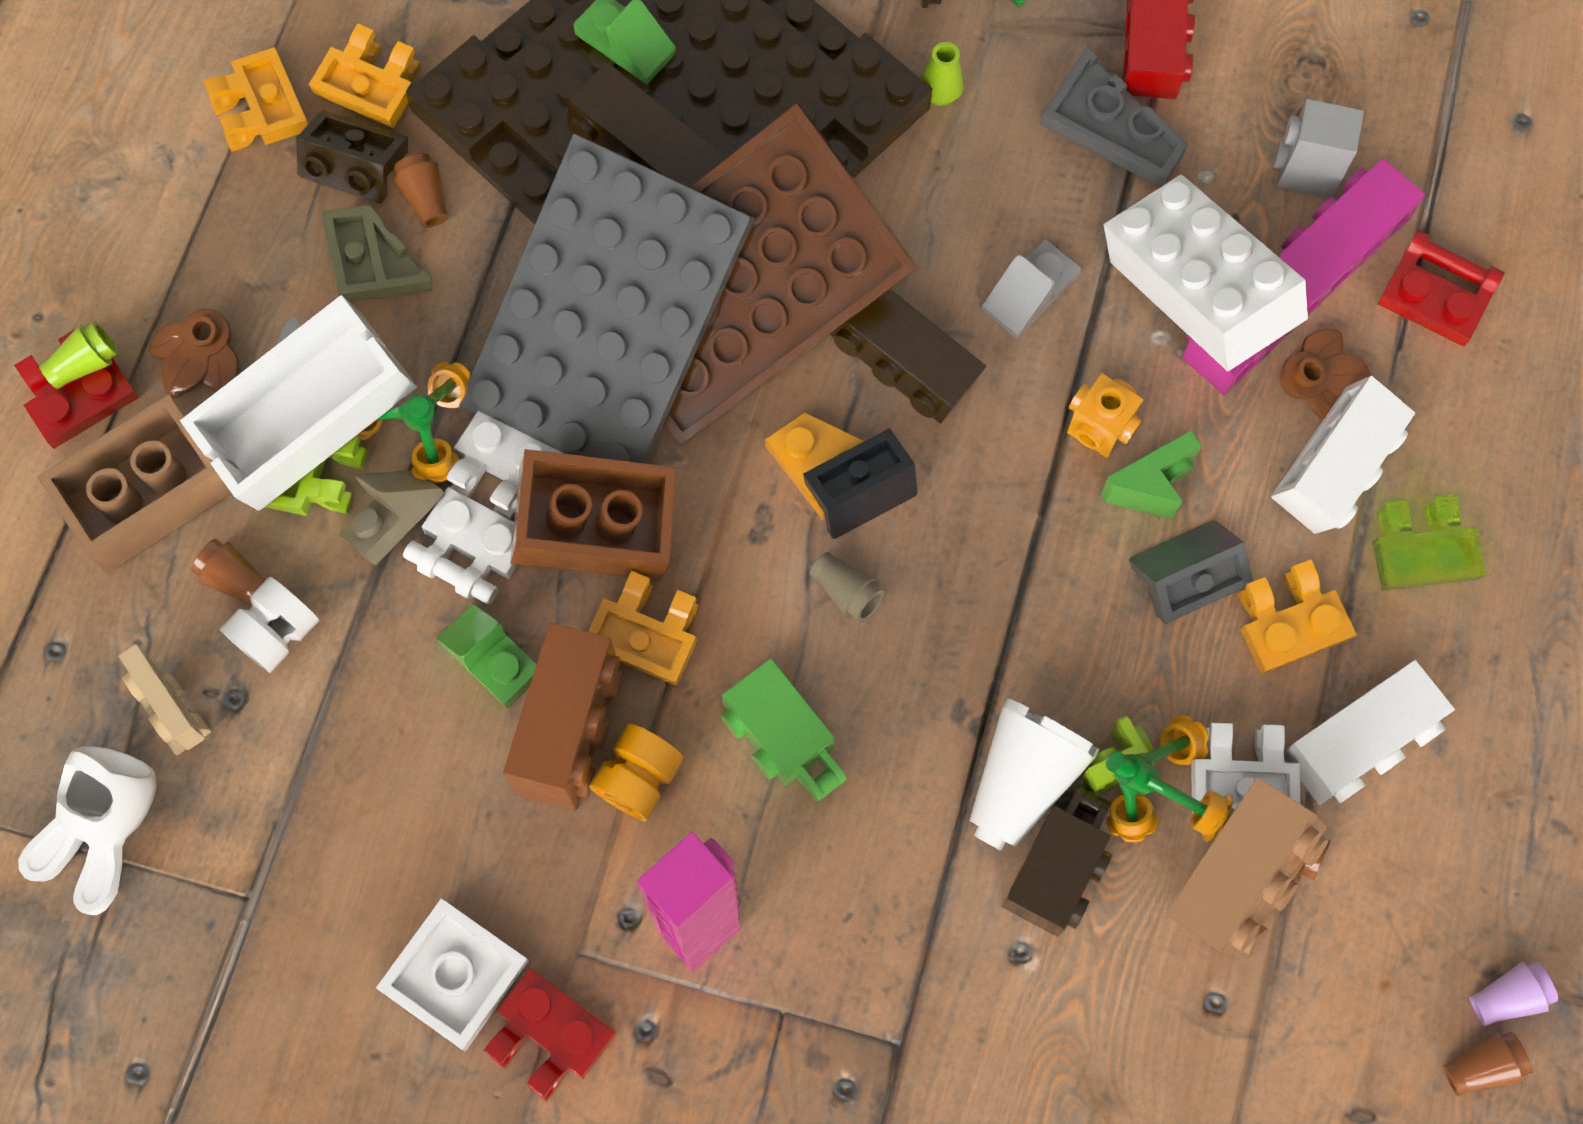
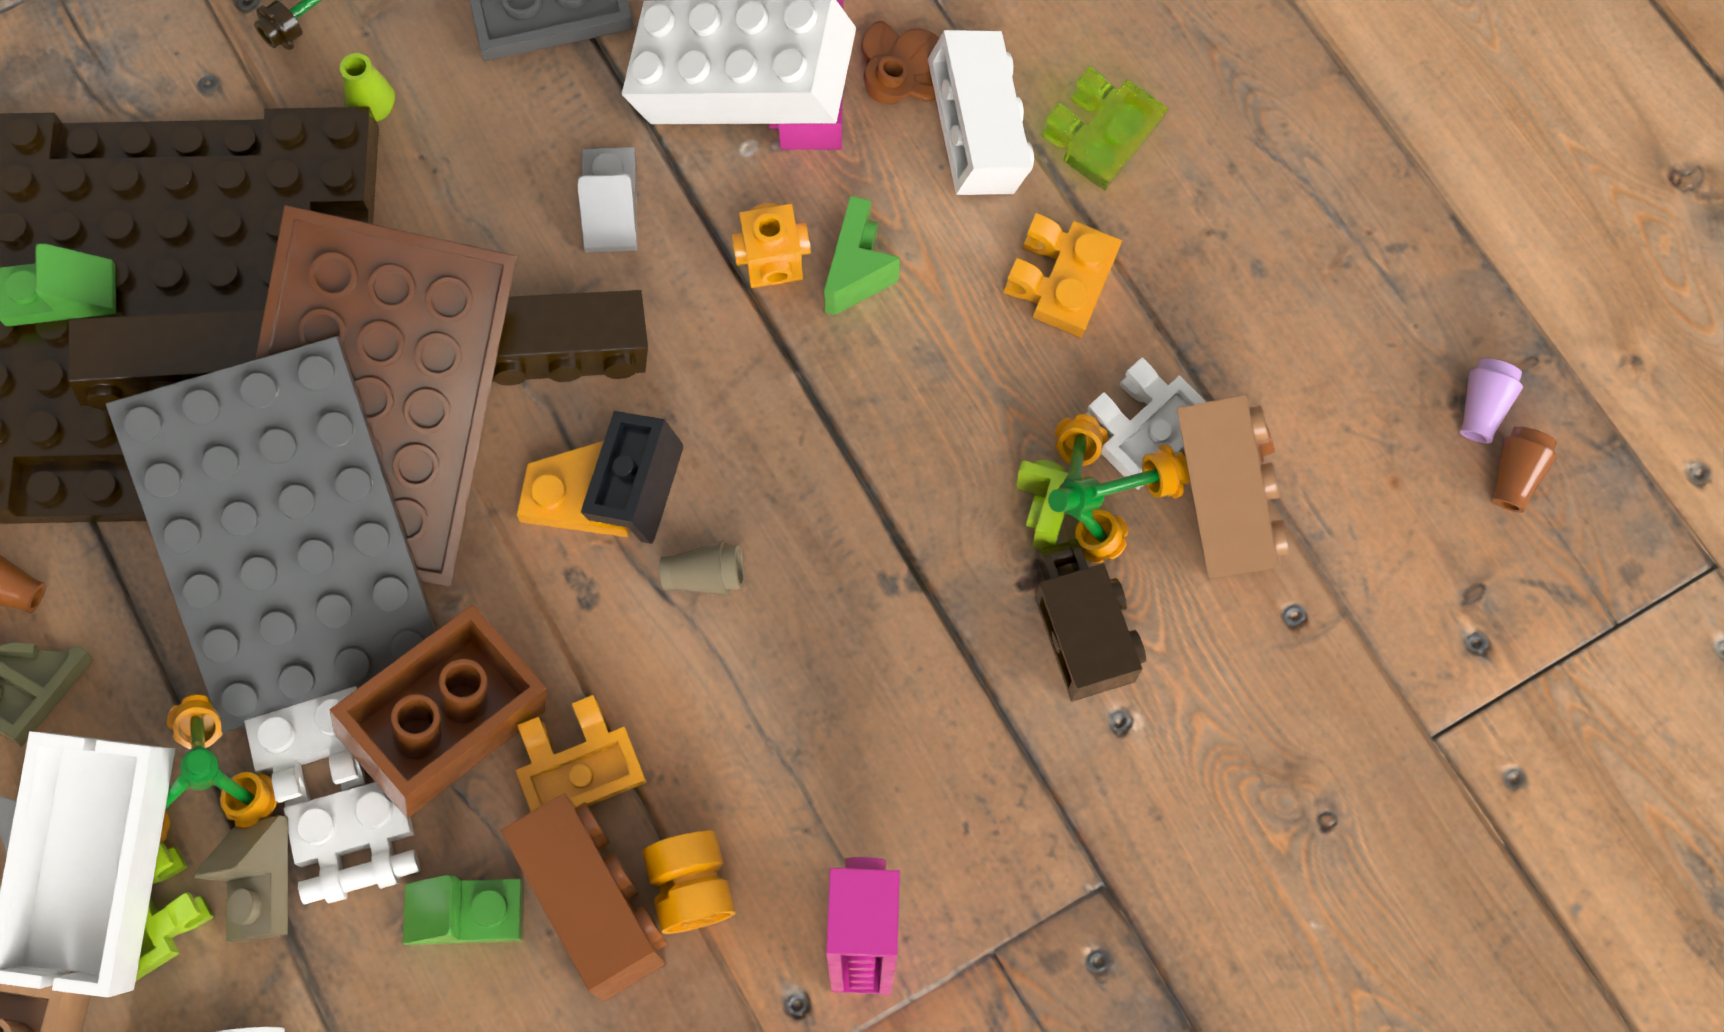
camera: 45 degrees left, 0 degrees up
(781, 730) = (769, 733): bright green brick -> none
(1025, 773) = (992, 579): white cone -> none
(1193, 570) = (955, 303): dark grey panel -> none
(1370, 734) = (1206, 305): white brick -> none

